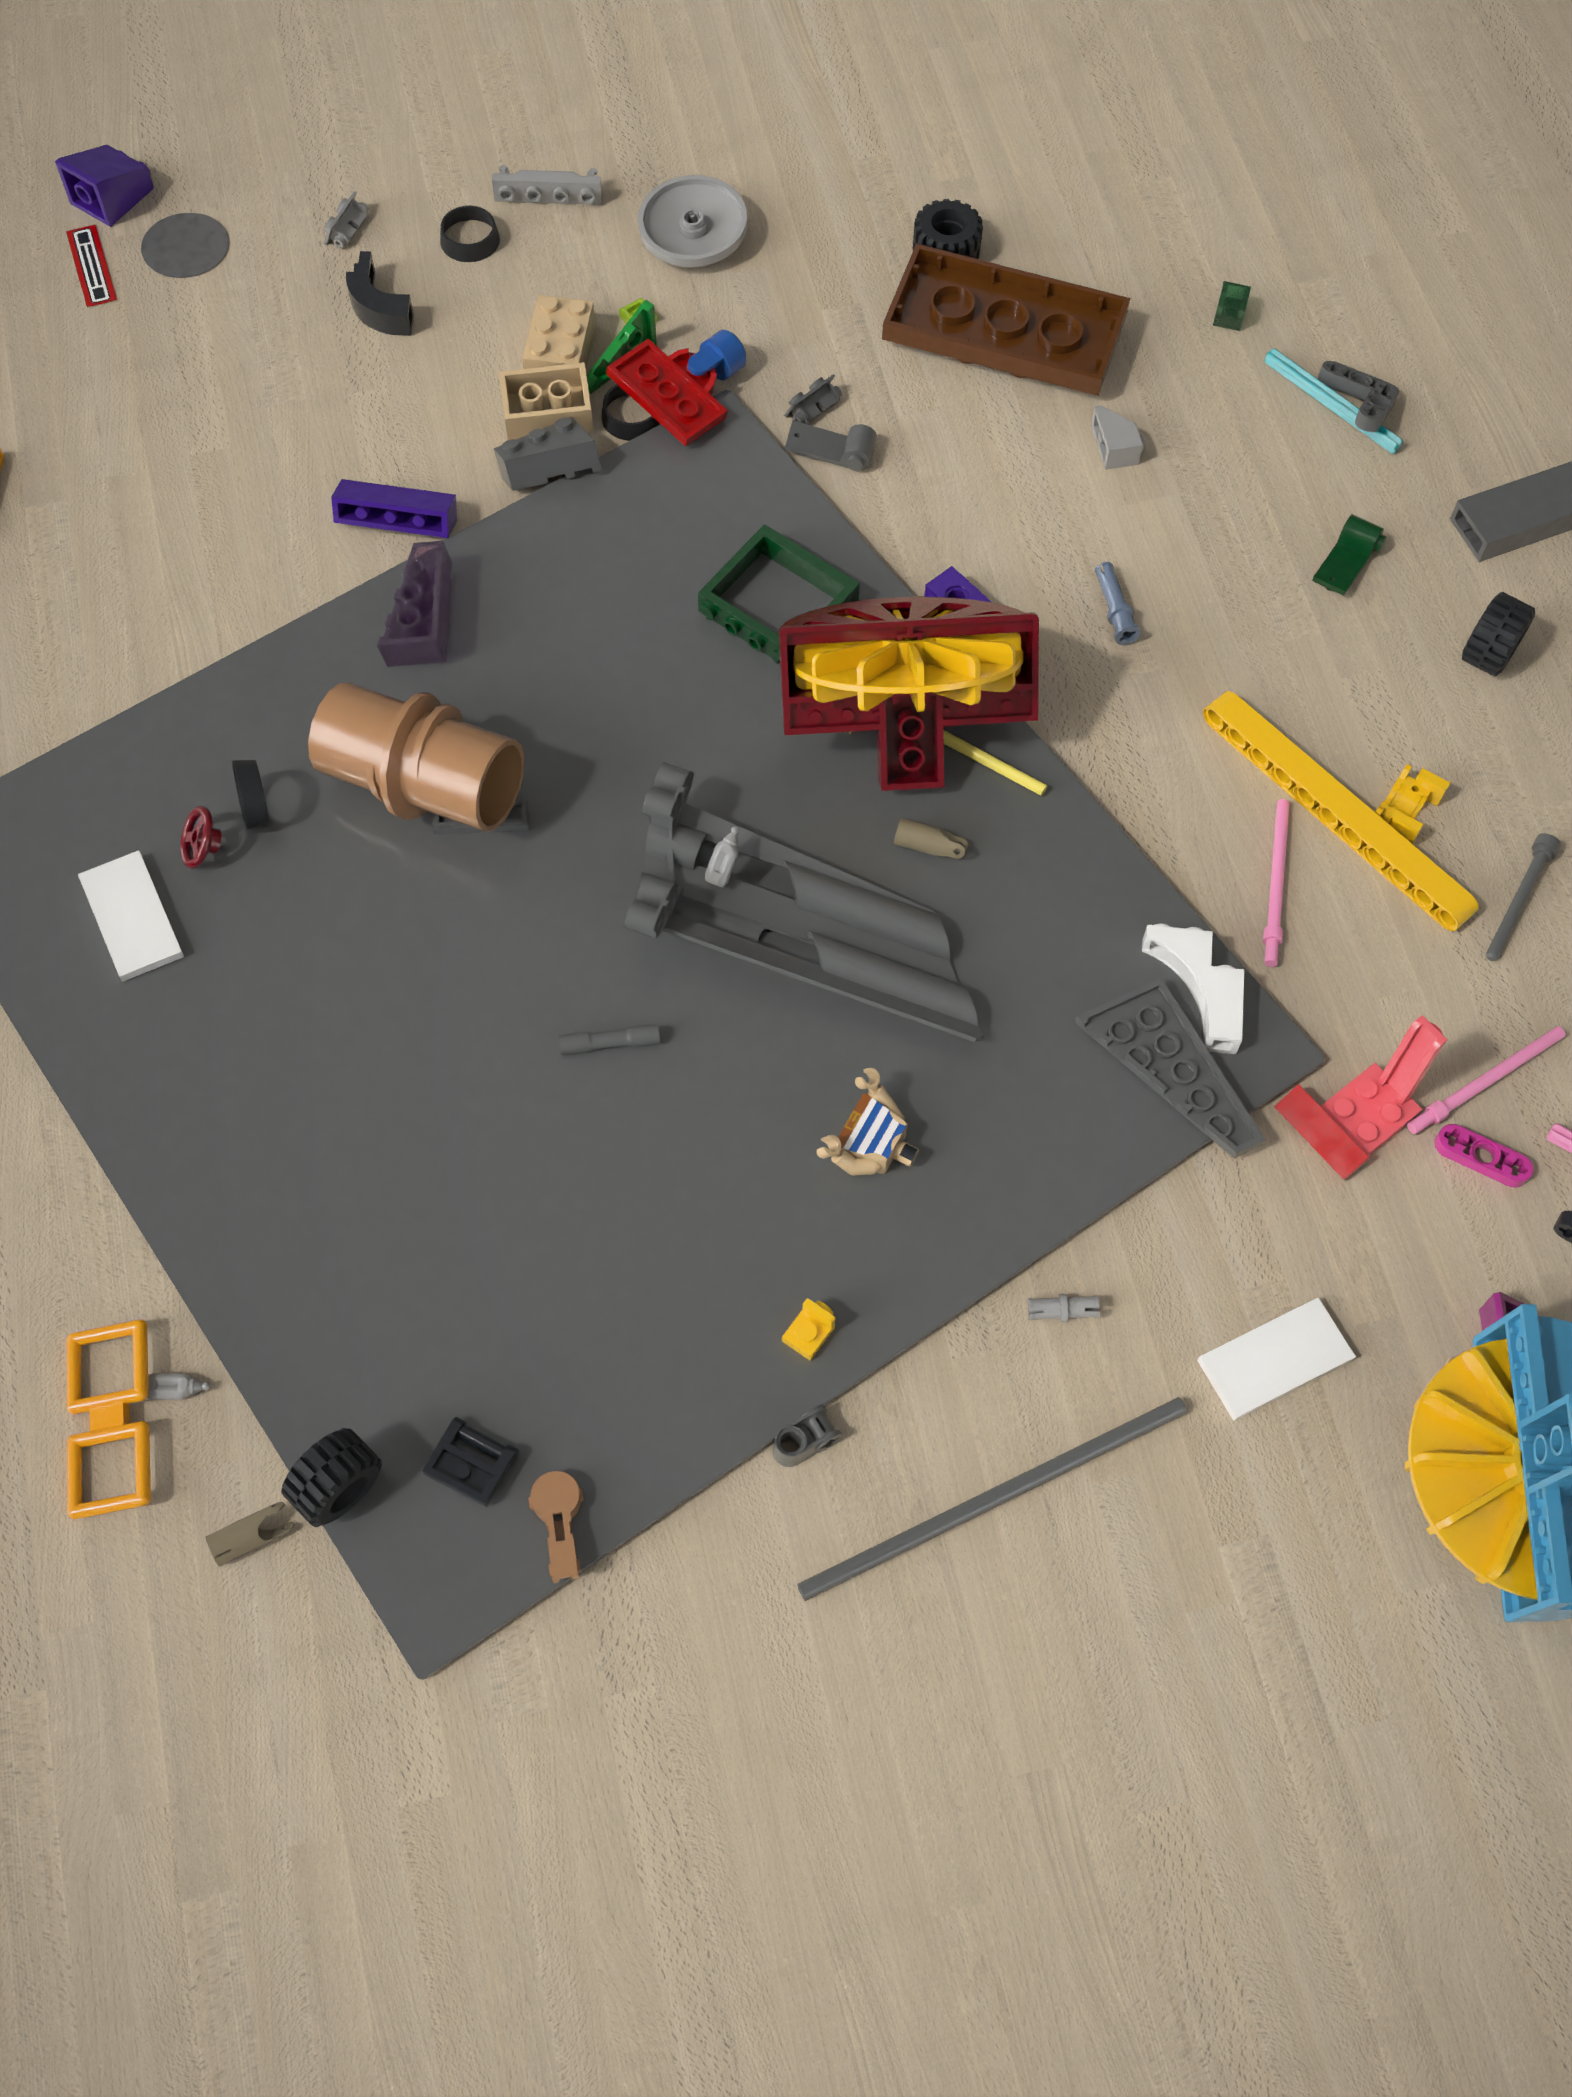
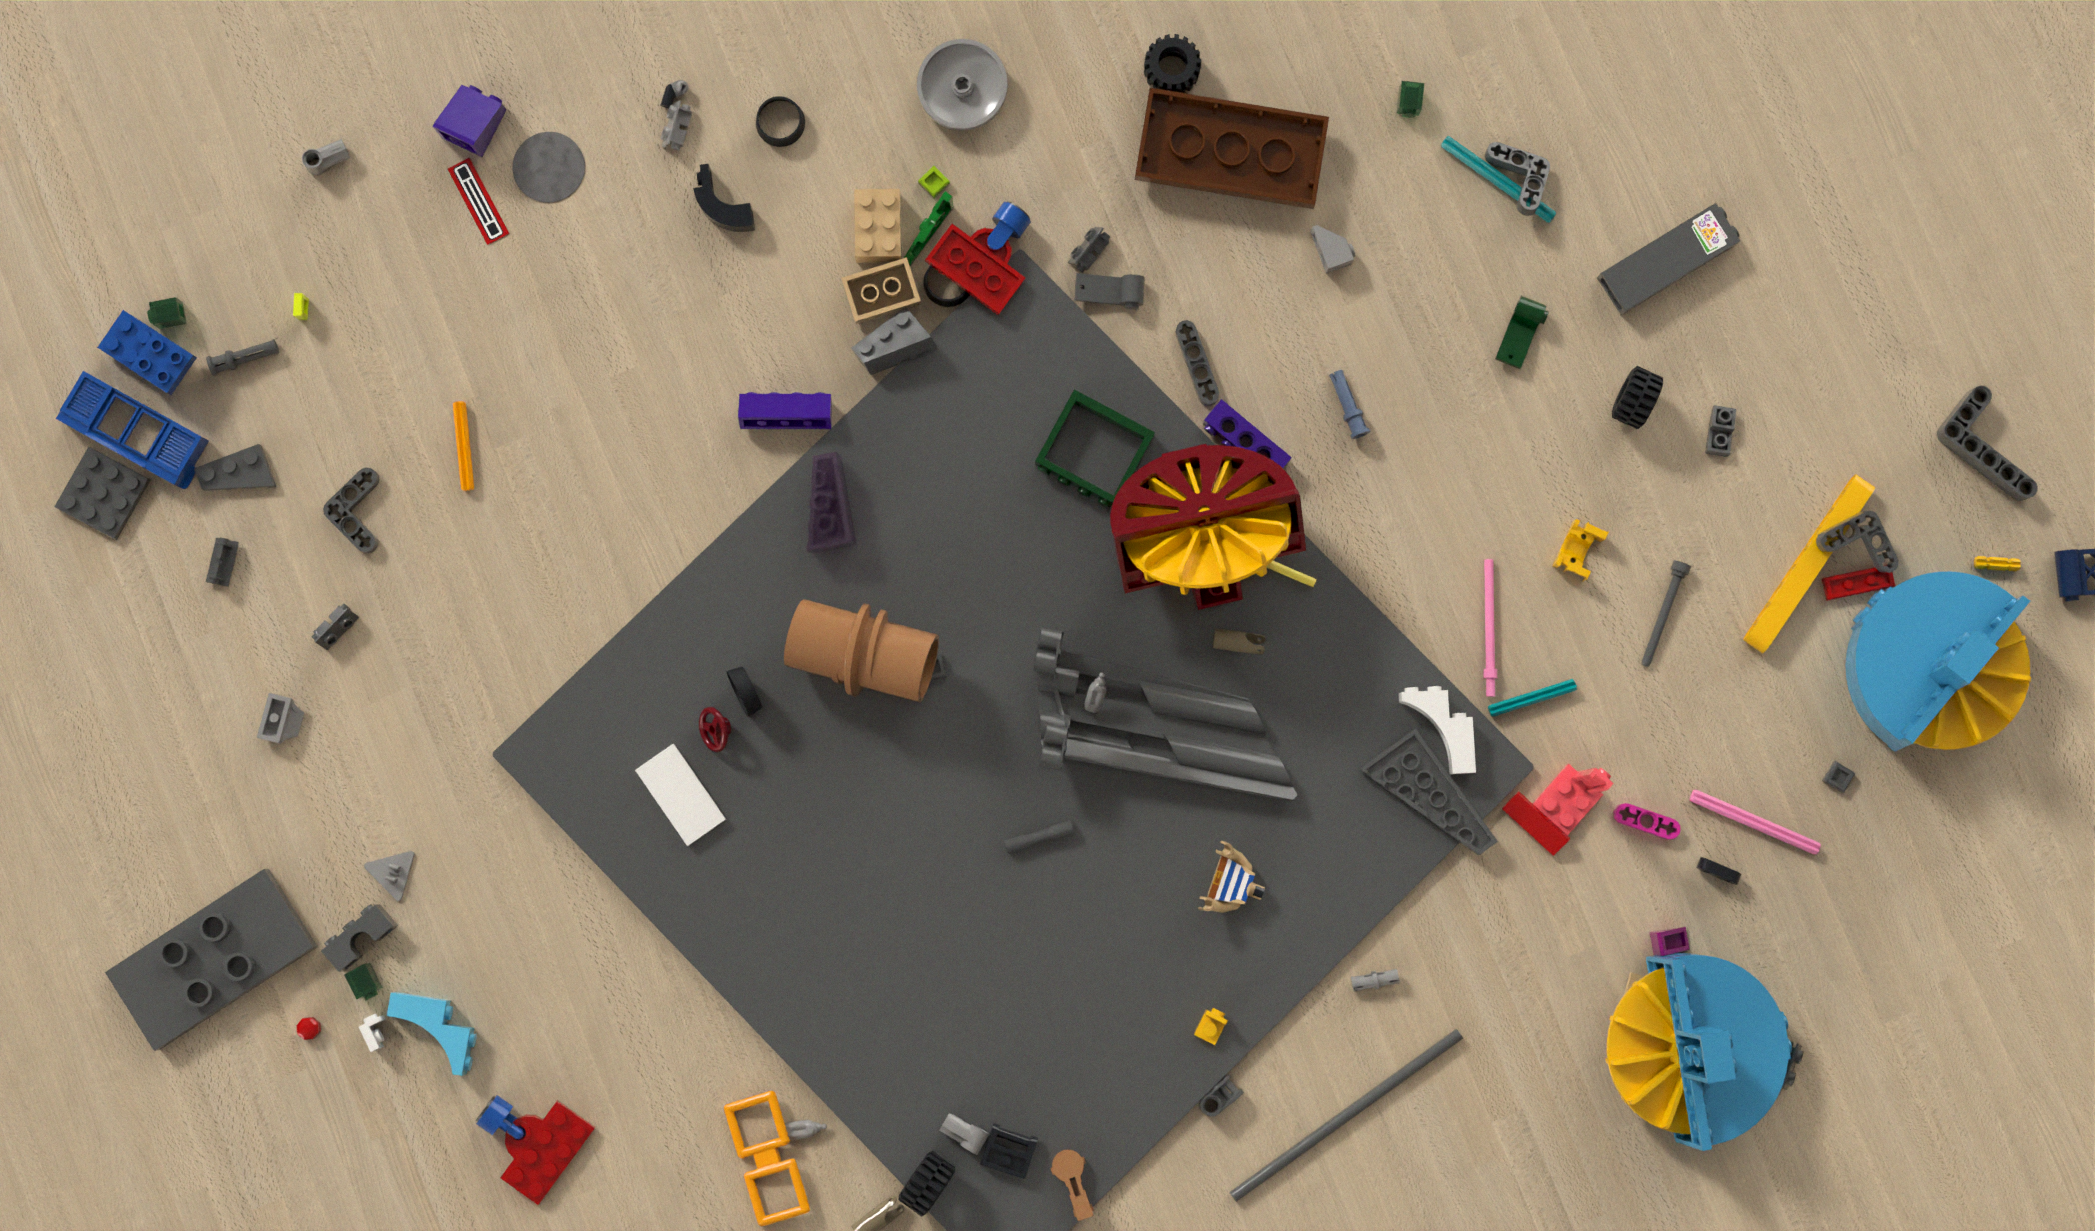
camera: 10 degrees left, 20 degrees up
(361, 186) = (672, 91): none -> arm
(415, 1428) = (969, 1136): none -> light grey piece
(547, 187) = (829, 63): light grey piece -> none
(926, 535) = (1199, 362): none -> dark grey beam
(1276, 1359) = (1518, 991): white tile -> none
(1329, 974) = (1532, 697): none -> teal axle
(1341, 811) = (1528, 561): yellow beam -> none
(1440, 1110) = (1614, 793): bright pink bar -> none

